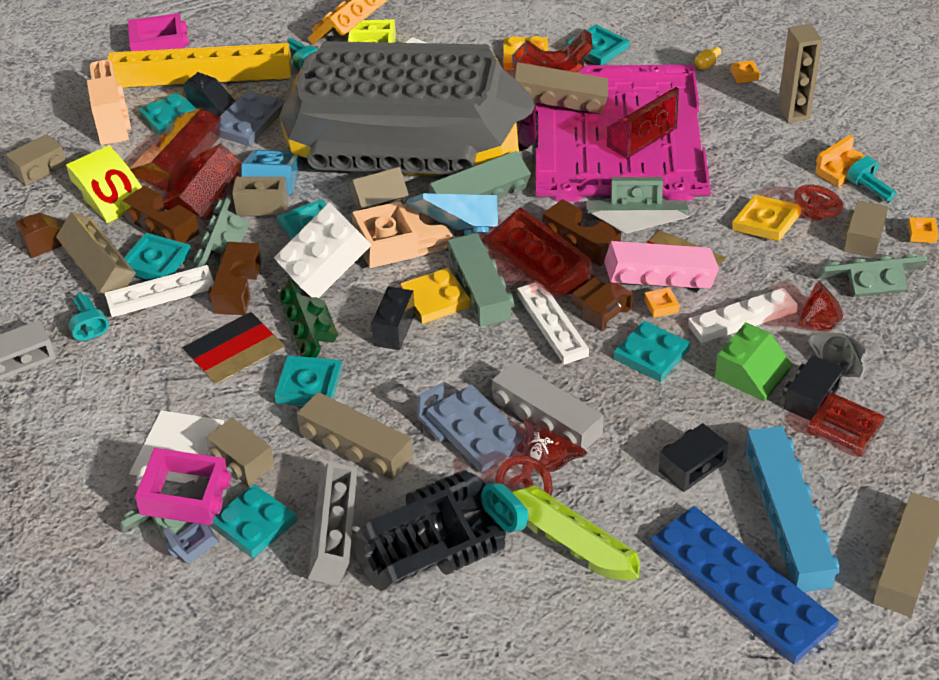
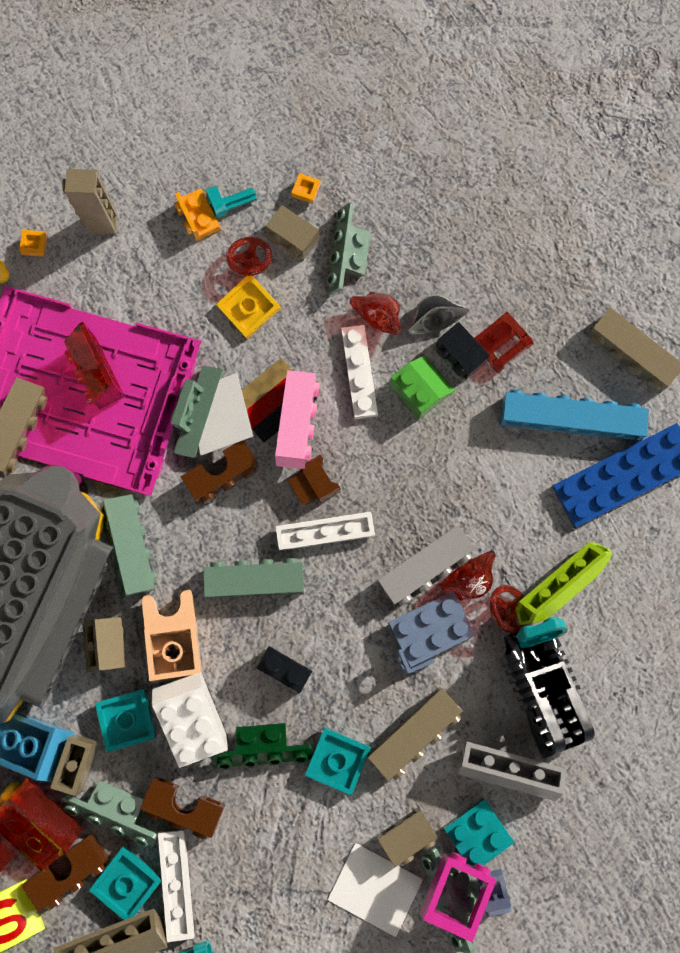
camera: 80 degrees left, 35 degrees up
(233, 347) = (265, 821): sticker -> none
(437, 295) = (256, 623): yellow plate -> none
(459, 211) = (176, 579): slope -> none
(541, 253) = (247, 520): clear red slope -> none
(652, 351) = (379, 459): teal plate -> none
(661, 302) = (329, 432): light orange plate -> none
(693, 457) = (507, 468): black brick -> none

